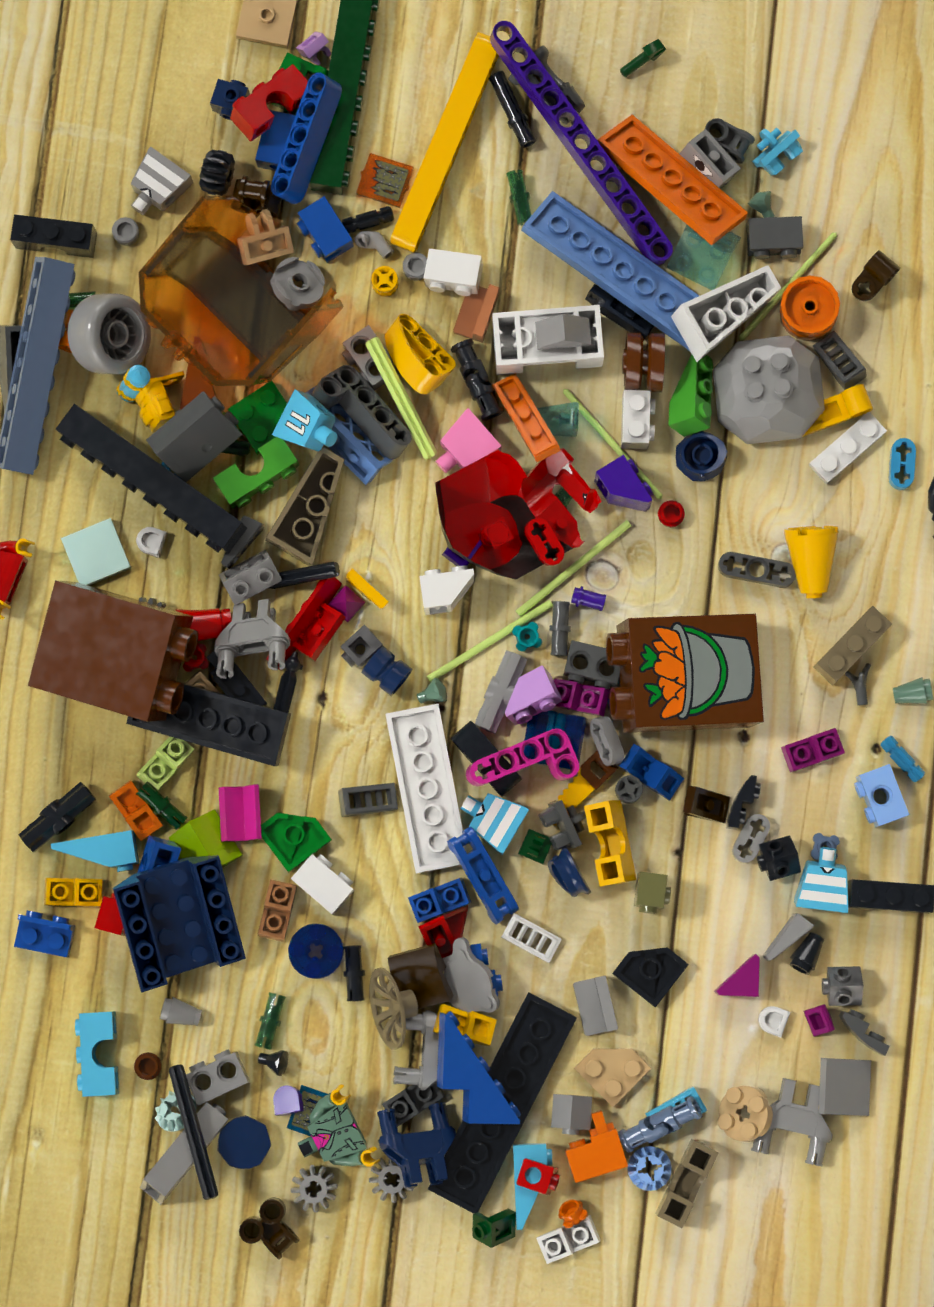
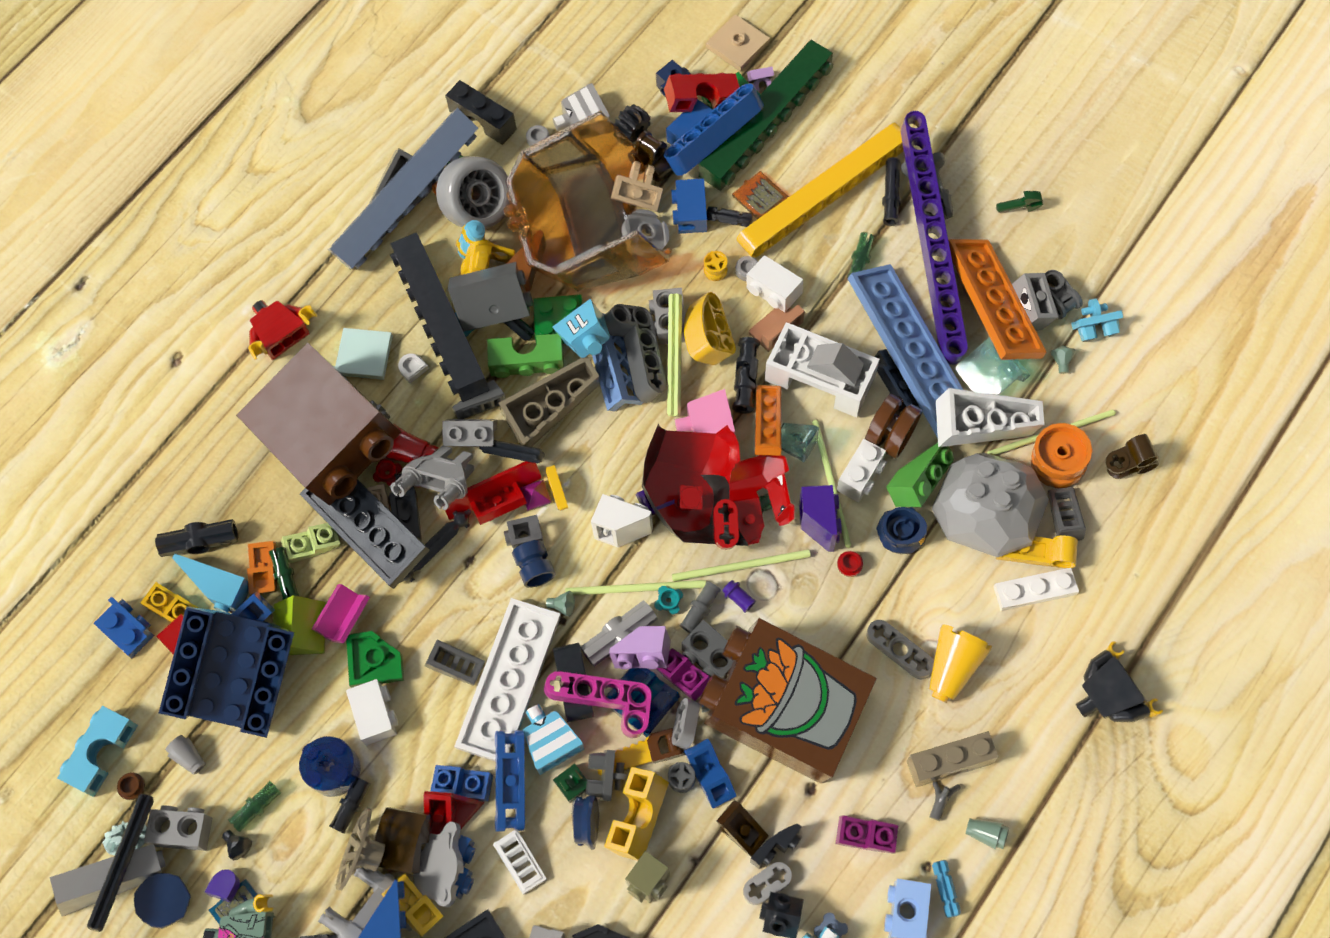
camera: 30 degrees right, 15 degrees down
(277, 910) = (322, 714): medium nougat slope -> none
(374, 240) = (725, 234): light grey arm -> none
(774, 237) = (1060, 386): dark grey brick -> none
(908, 464) = (1073, 624): dark azure beam -> none

